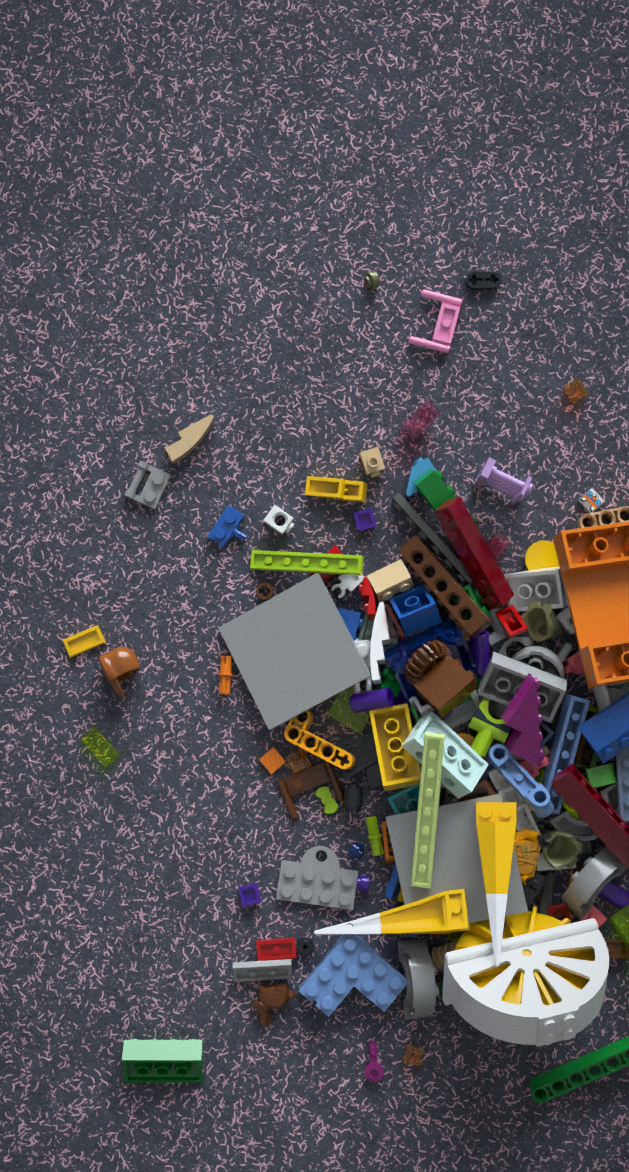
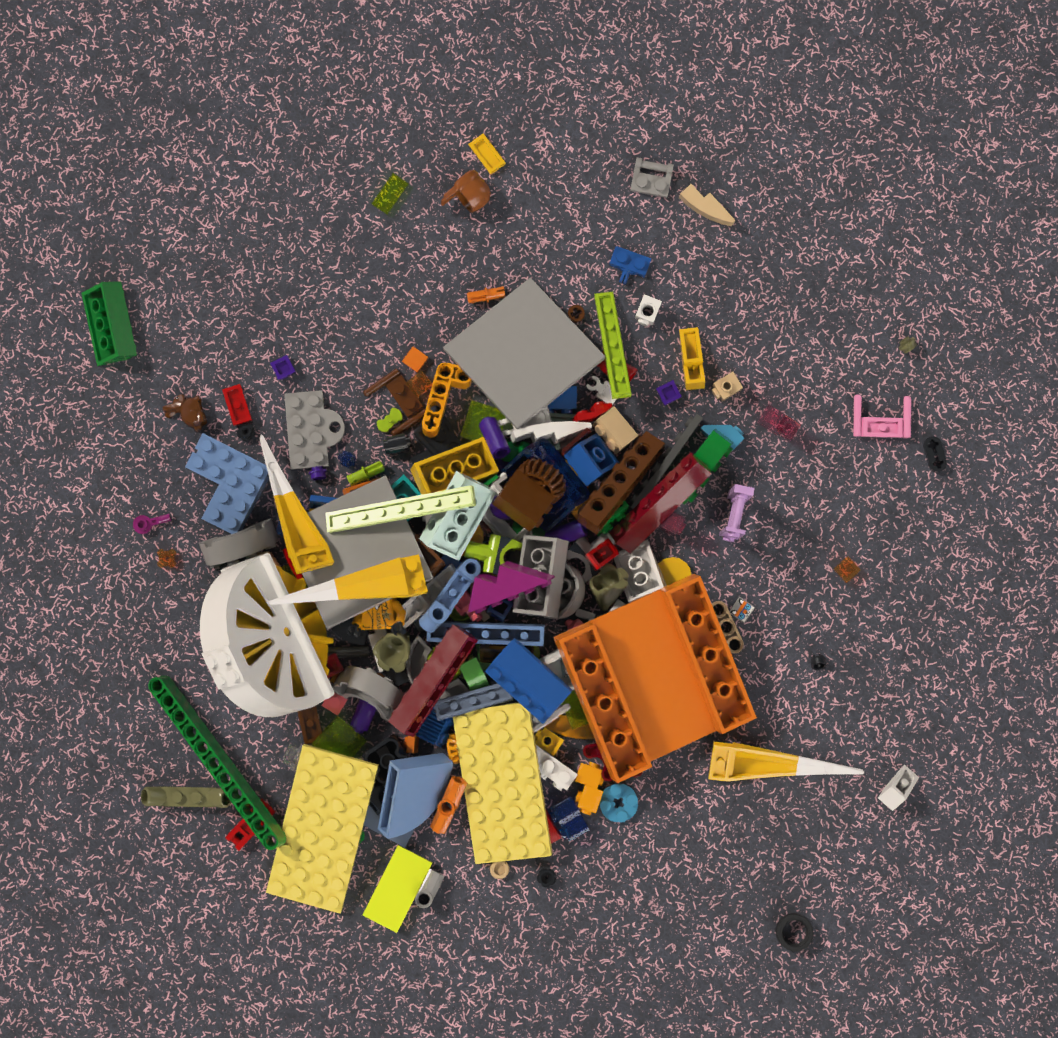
camera: 85 degrees right, 0 degrees up
(262, 970) = (214, 396): light grey plate -> none

